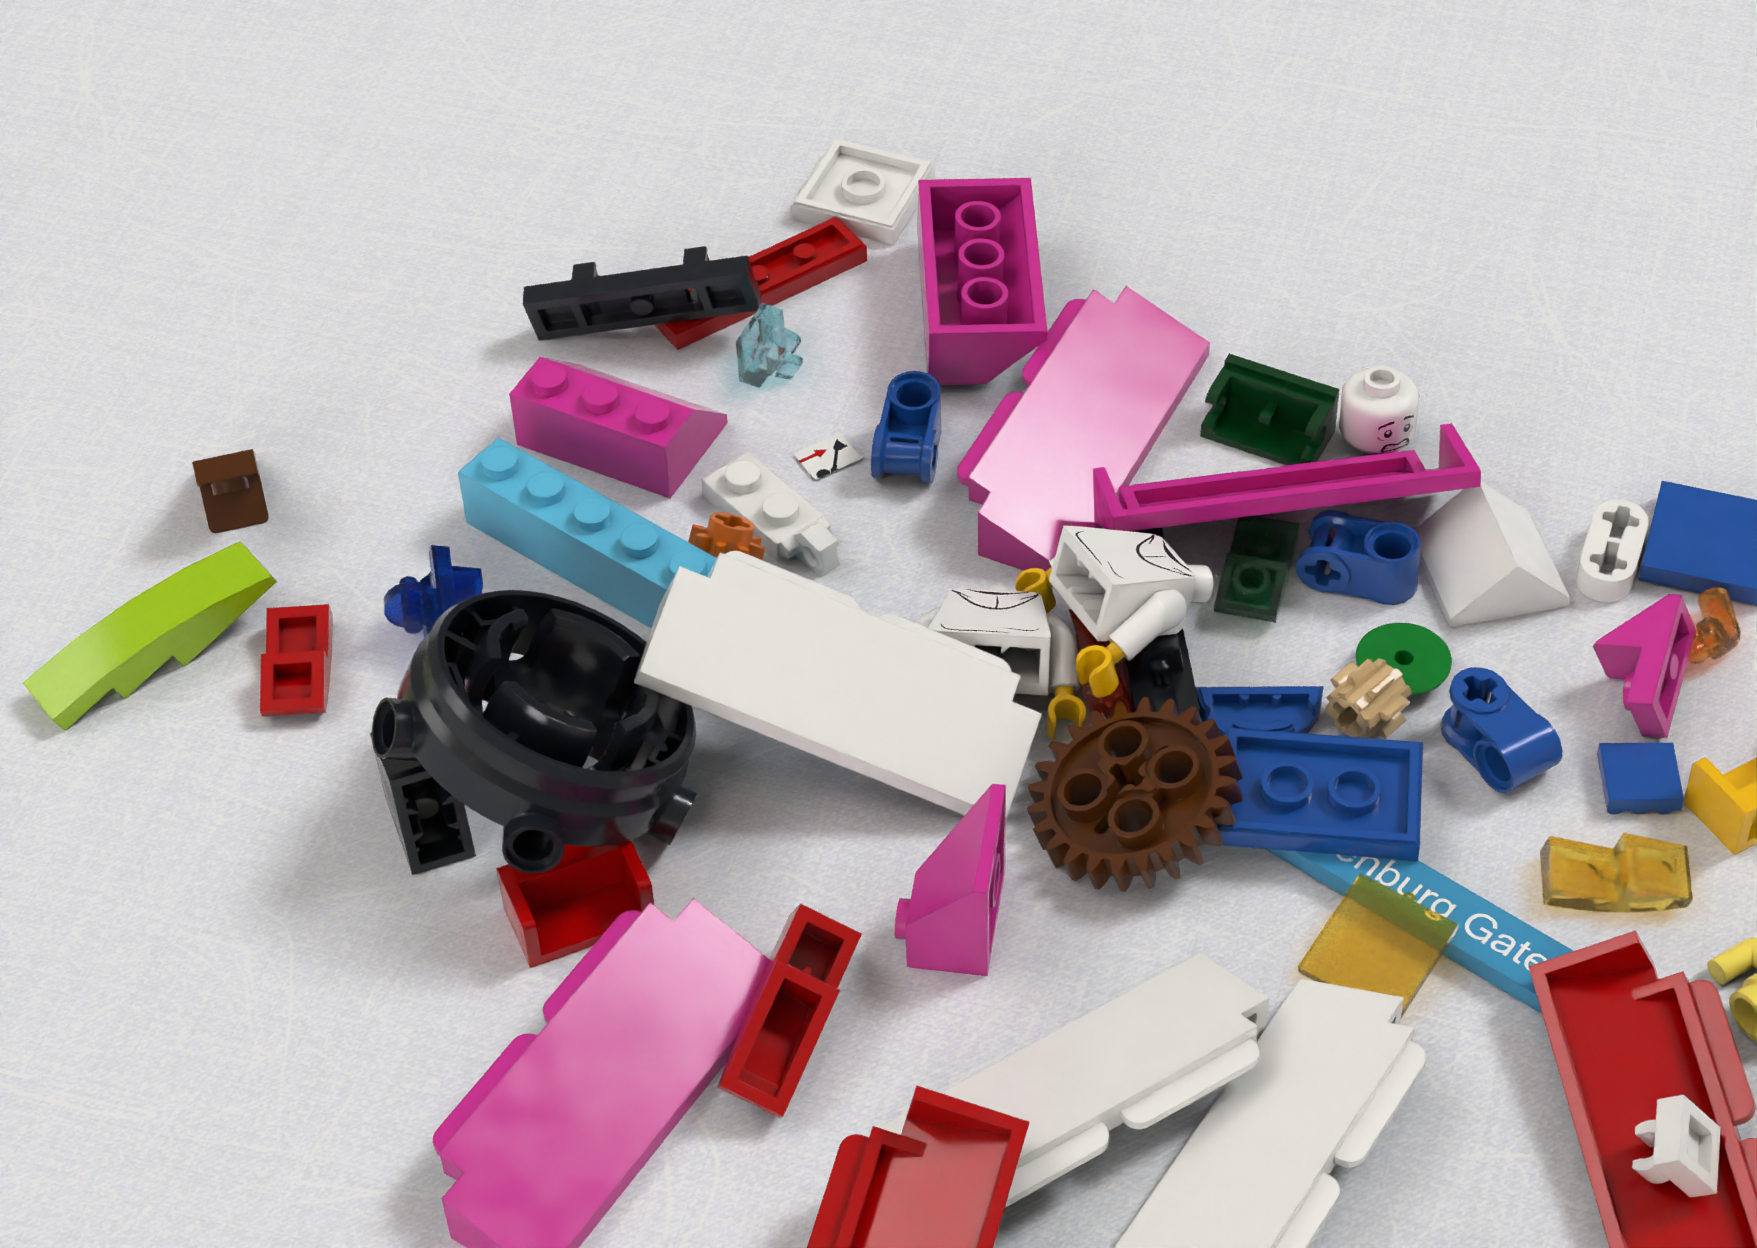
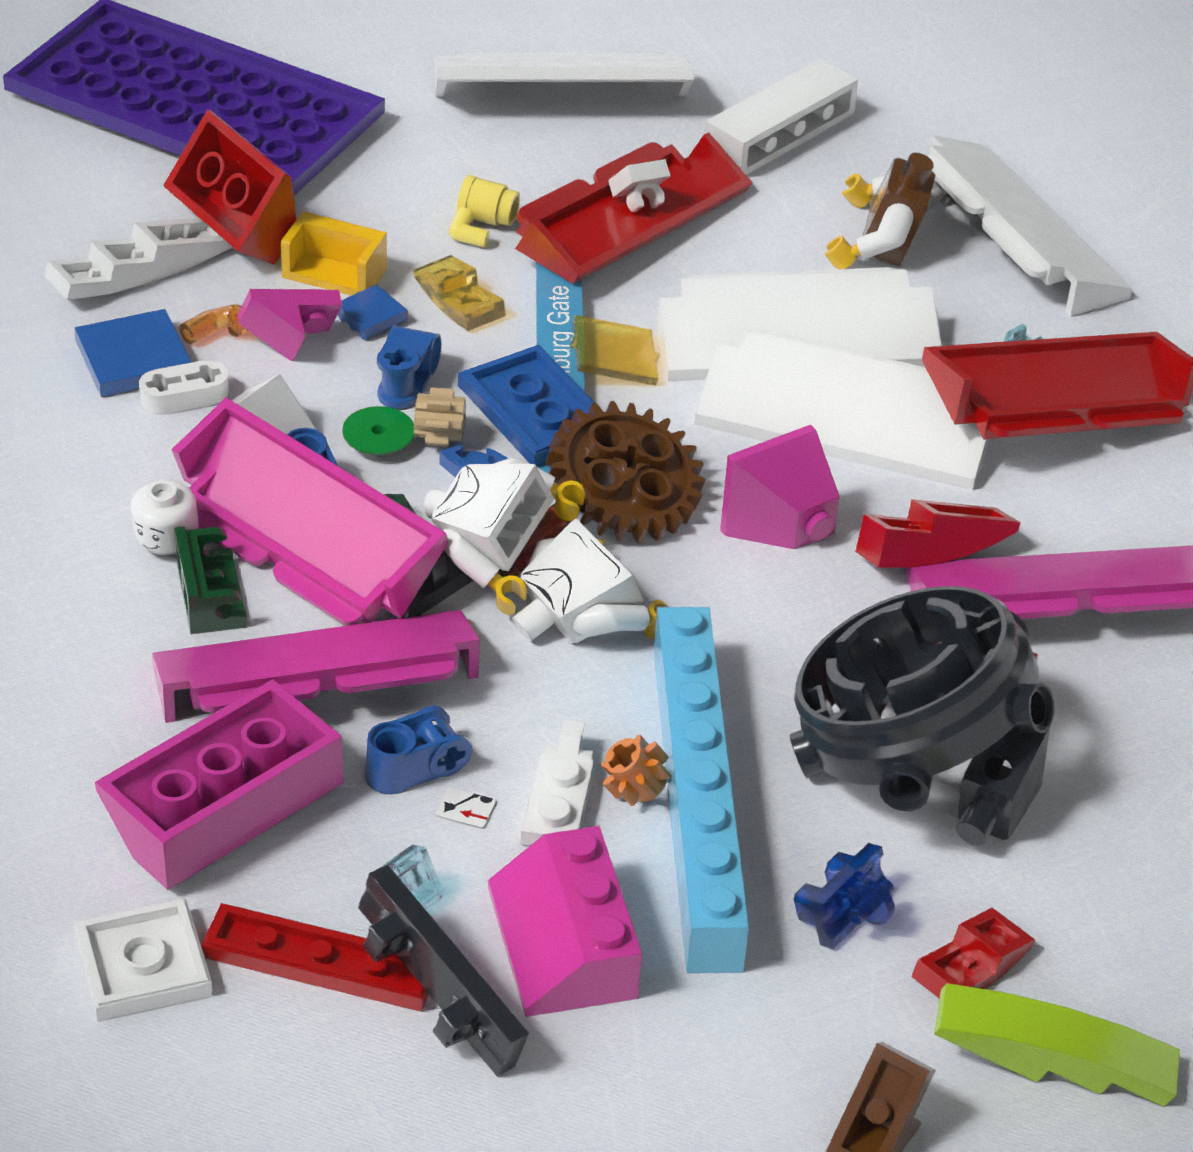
camera: 135 degrees left, 5 degrees down
(840, 681) = (730, 590): white slope -> none

